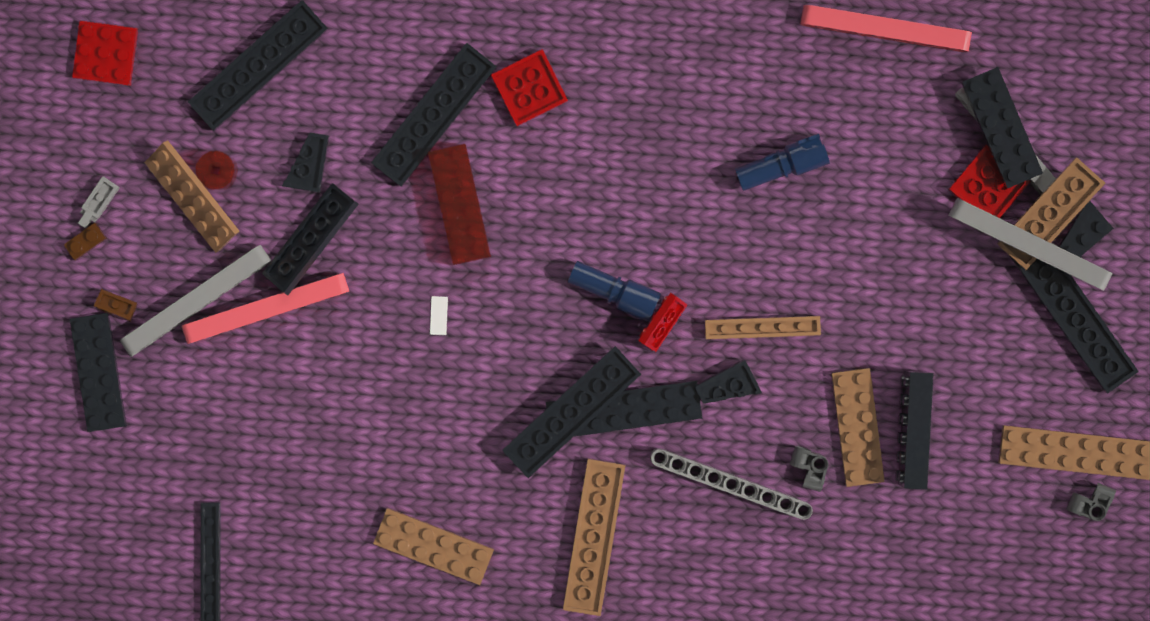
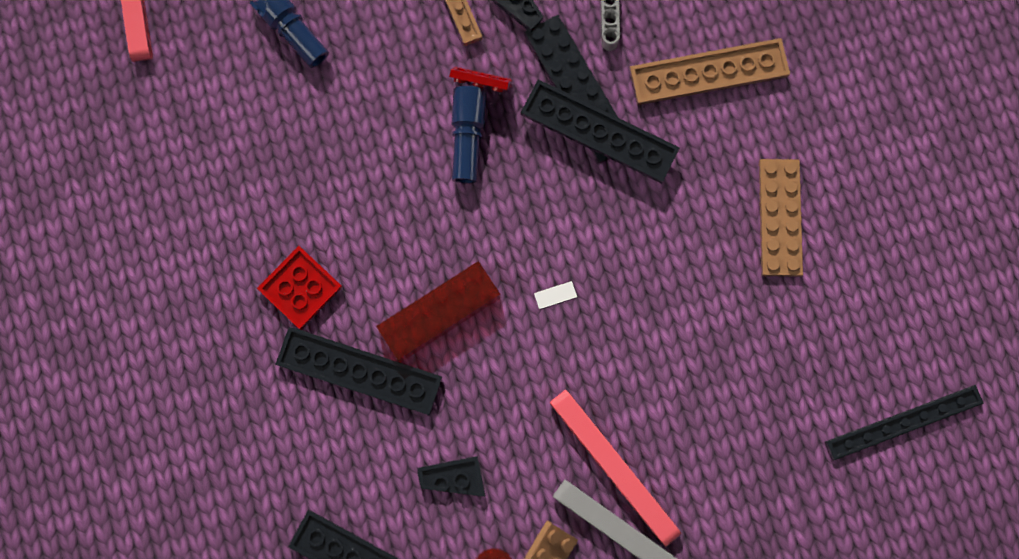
camera: 100 degrees left, 10 degrees down
(310, 239) = (527, 447): black plate -> none

